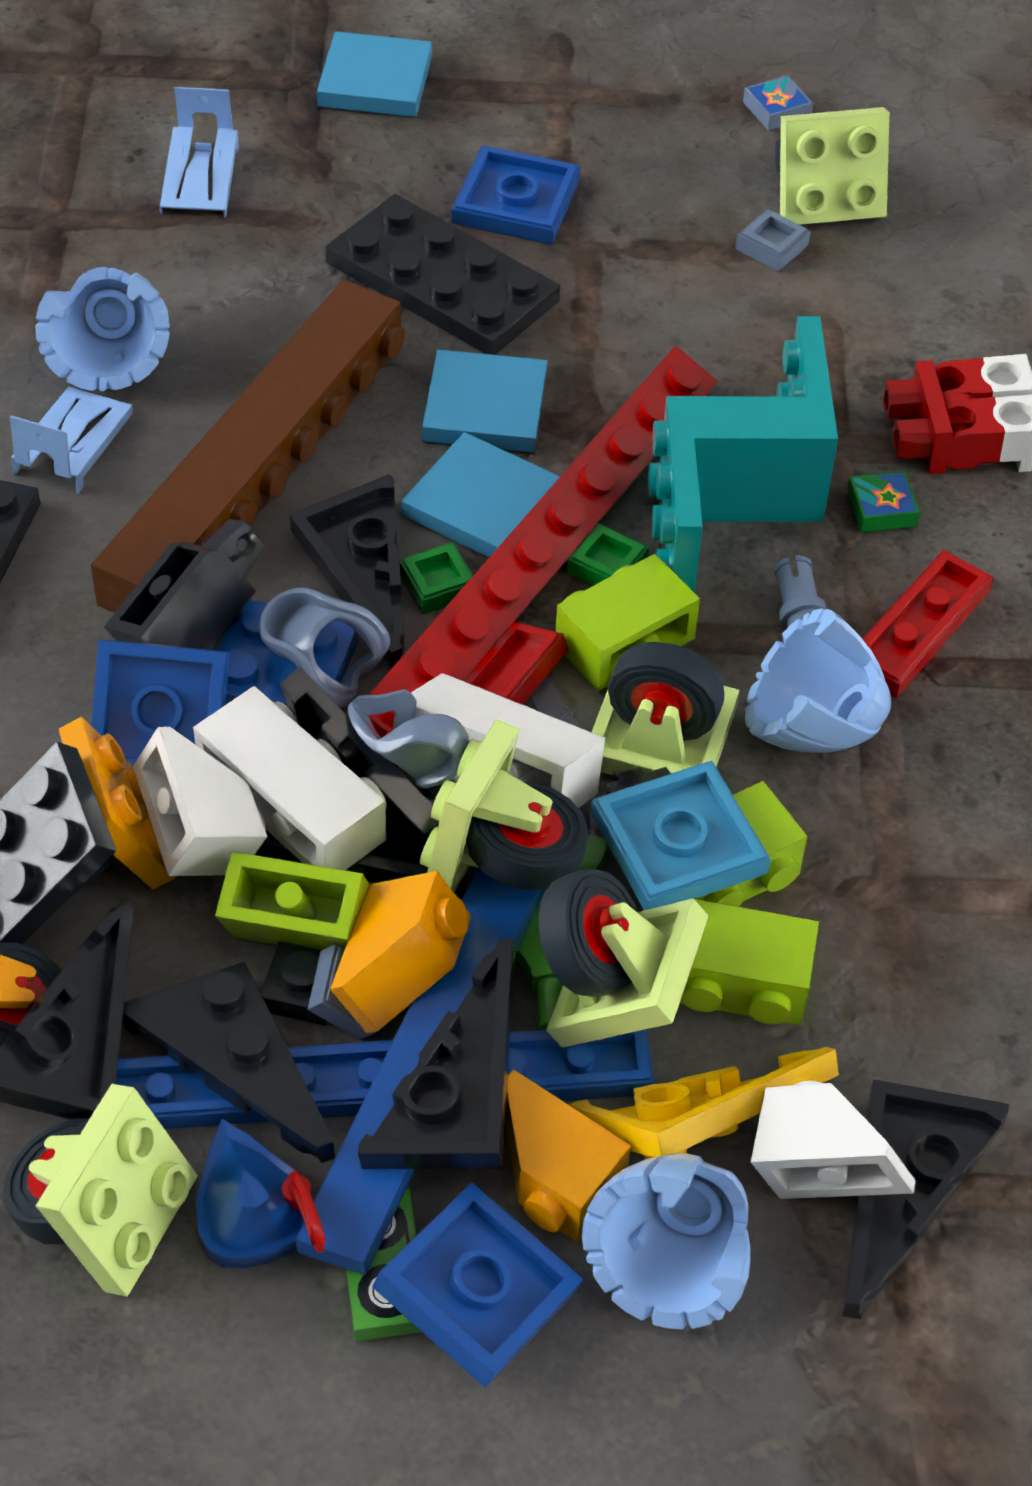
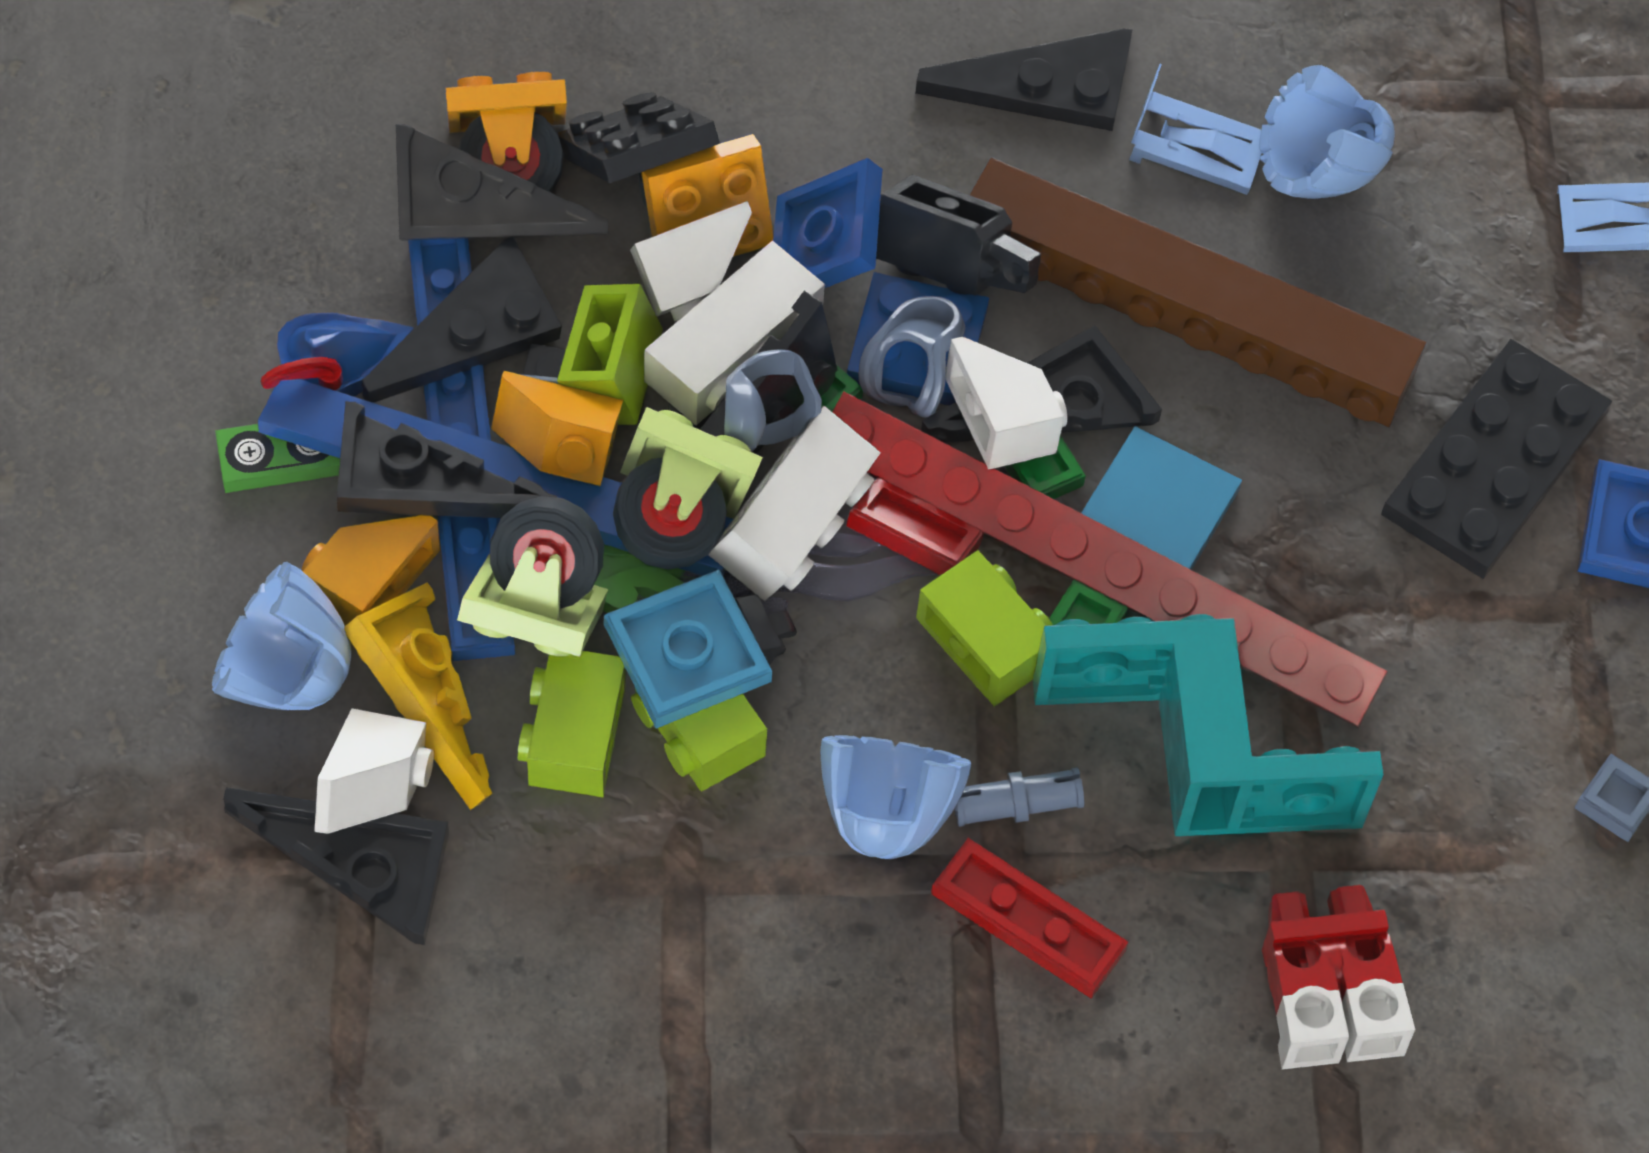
camera: 85 degrees right, 10 degrees up
(101, 1187) = (325, 239): yellowish green plate -> none
(397, 567) = (1004, 403): none -> white slope
(477, 1284) = (246, 509): blue plate -> none
(485, 397) = (1301, 503): dark azure tile -> none
(664, 710) = (855, 658): plate -> none
(883, 501) = (1200, 890): tile -> none

